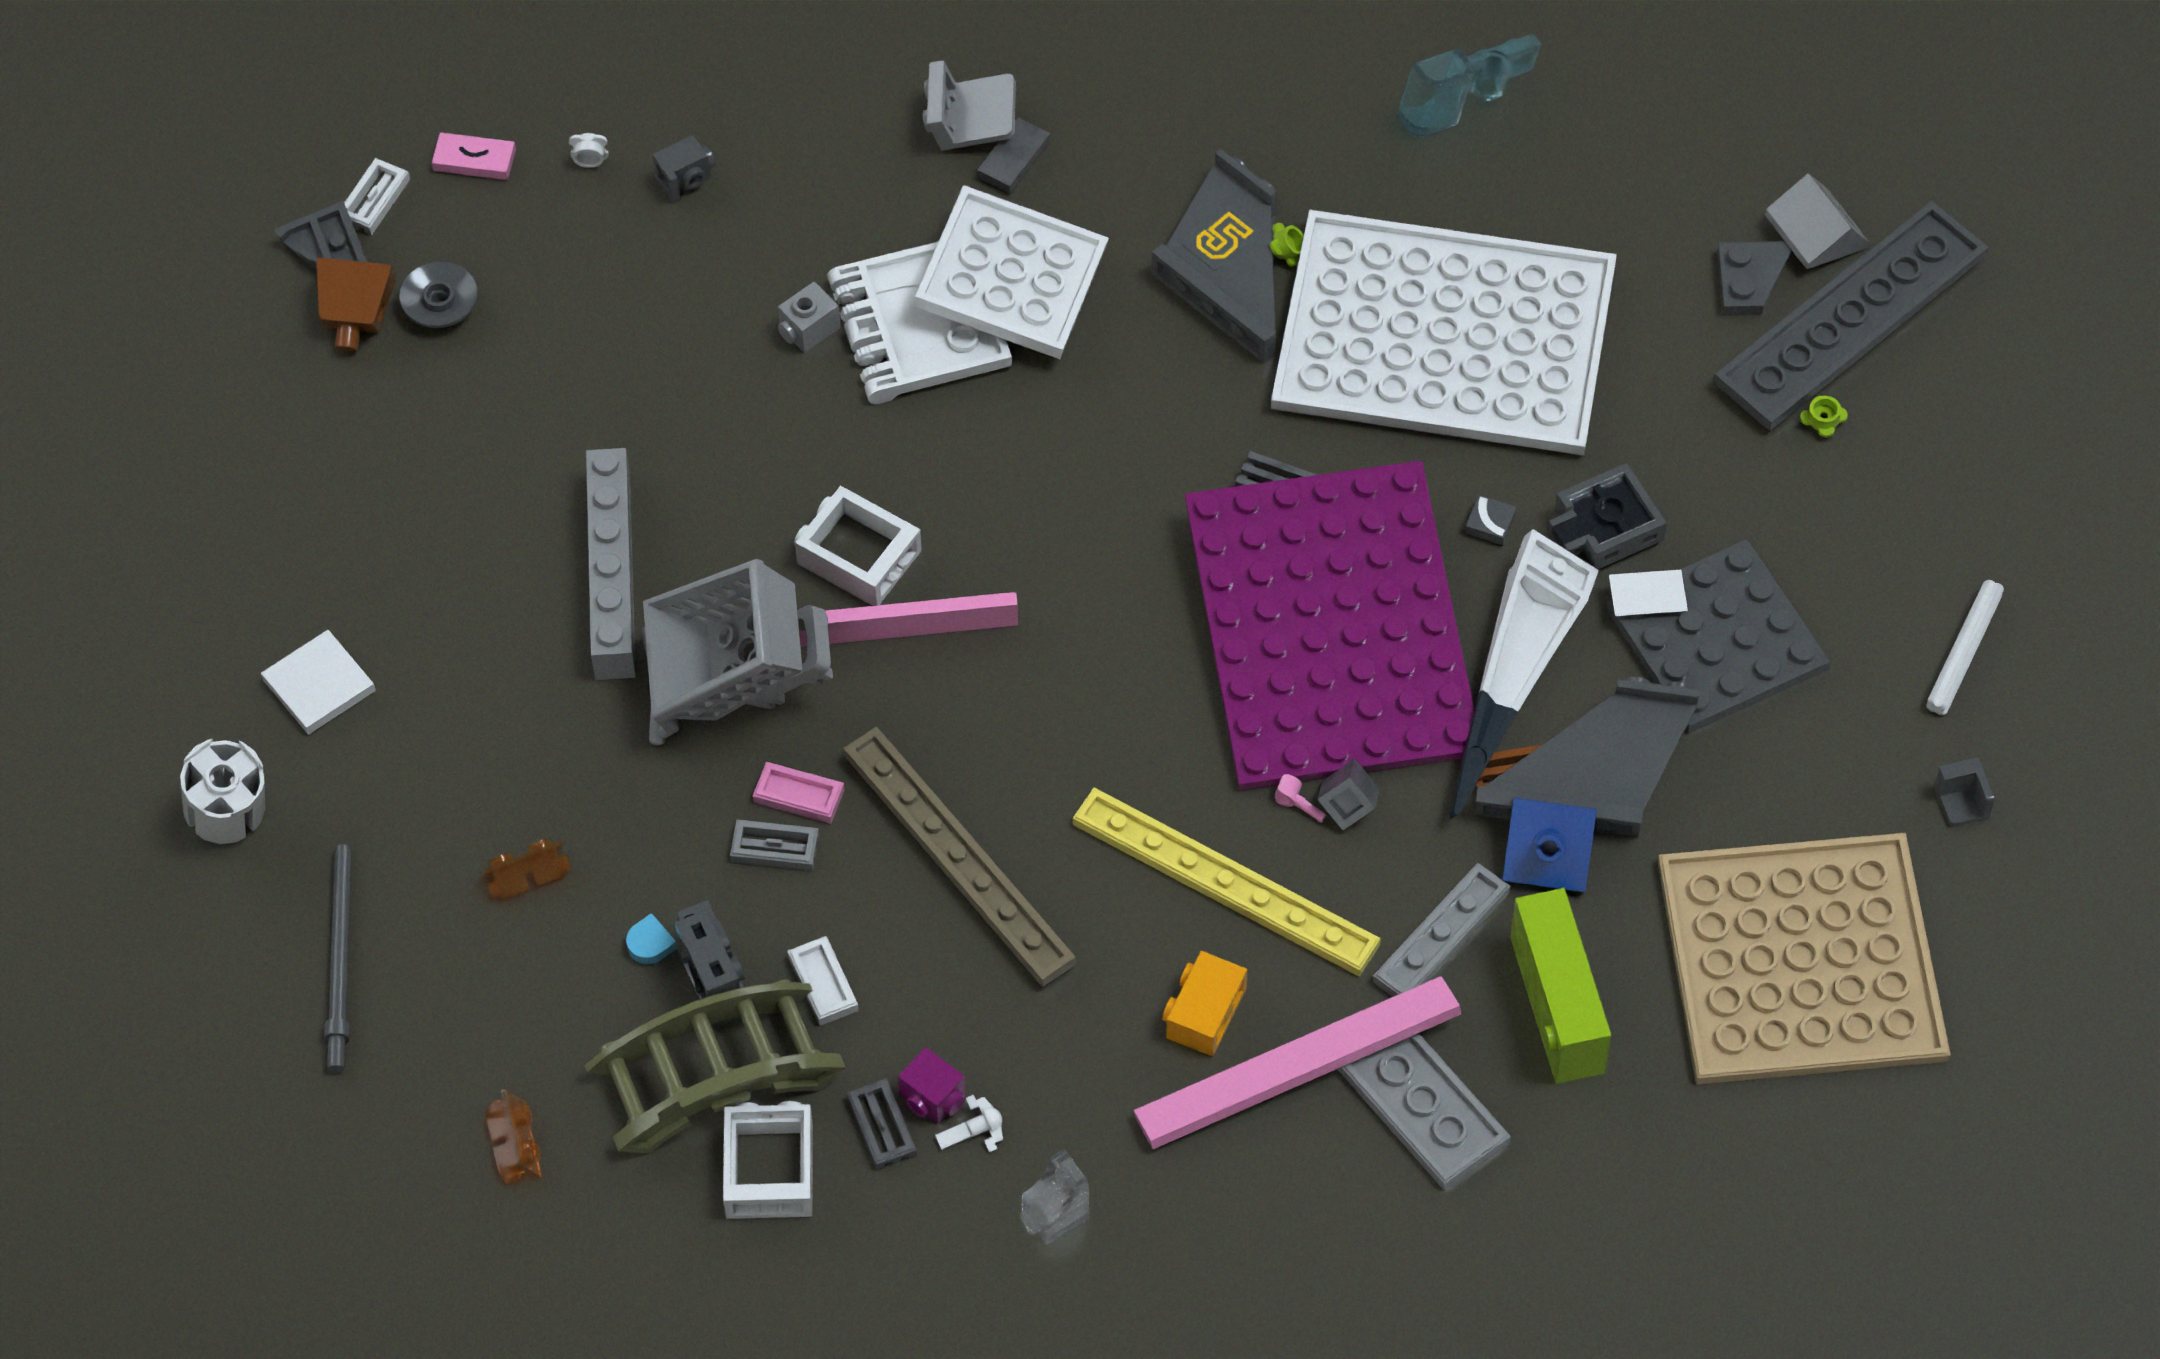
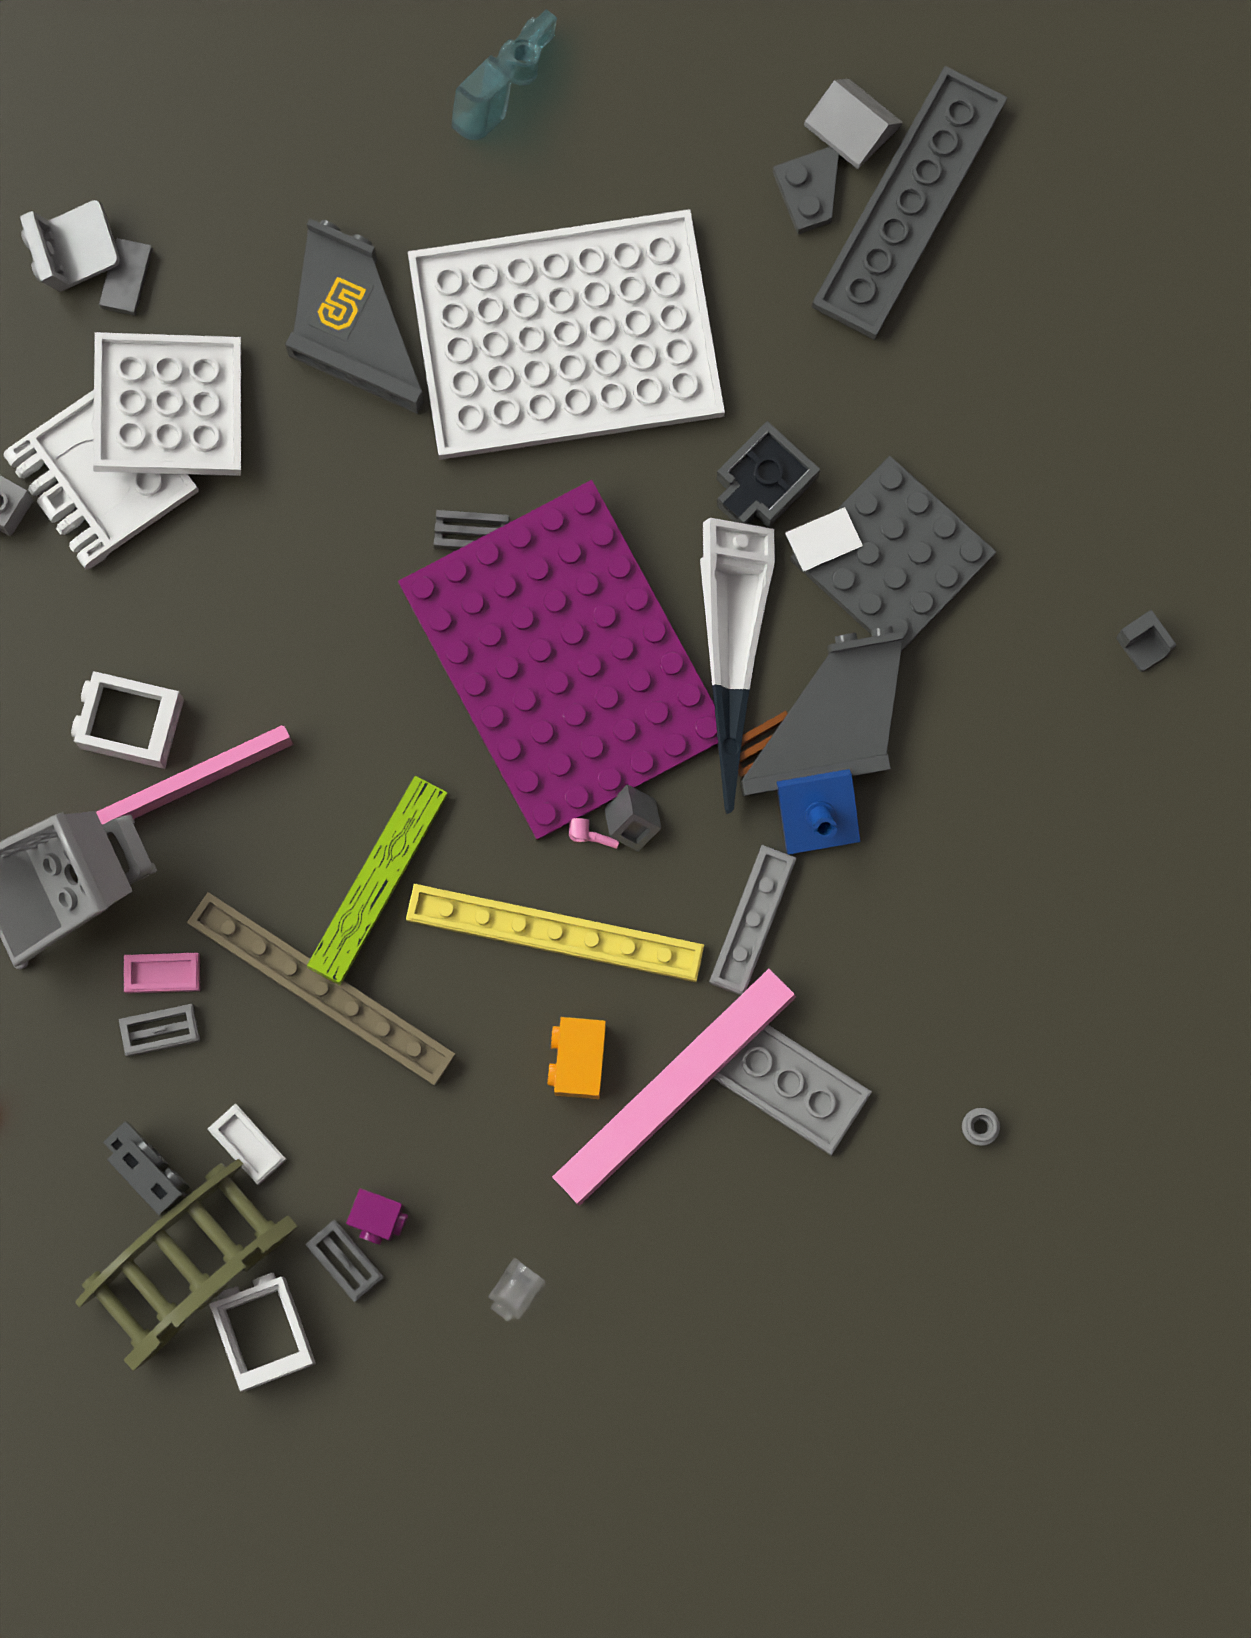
camera: 20 degrees left, 20 degrees up
(511, 1121) = (31, 1368): clear orange hinge -> none
(649, 941) = (85, 1159): medium azure tile -> none
(988, 1120) = (434, 1227): white piece -> none
(1056, 770) = (377, 880): none -> lime tile
(1287, 243) = (398, 291): lime plate -> none
(1490, 520) = (665, 507): dark grey tile -> none
(1560, 986) = (871, 946): lime brick -> none
(1622, 1198) = (991, 1121): none -> light grey plate
(1802, 958) = (1057, 840): tan tile -> none
(1828, 407) = (923, 303): lime plate -> none
(1965, 647) = (1103, 498): white axle -> none

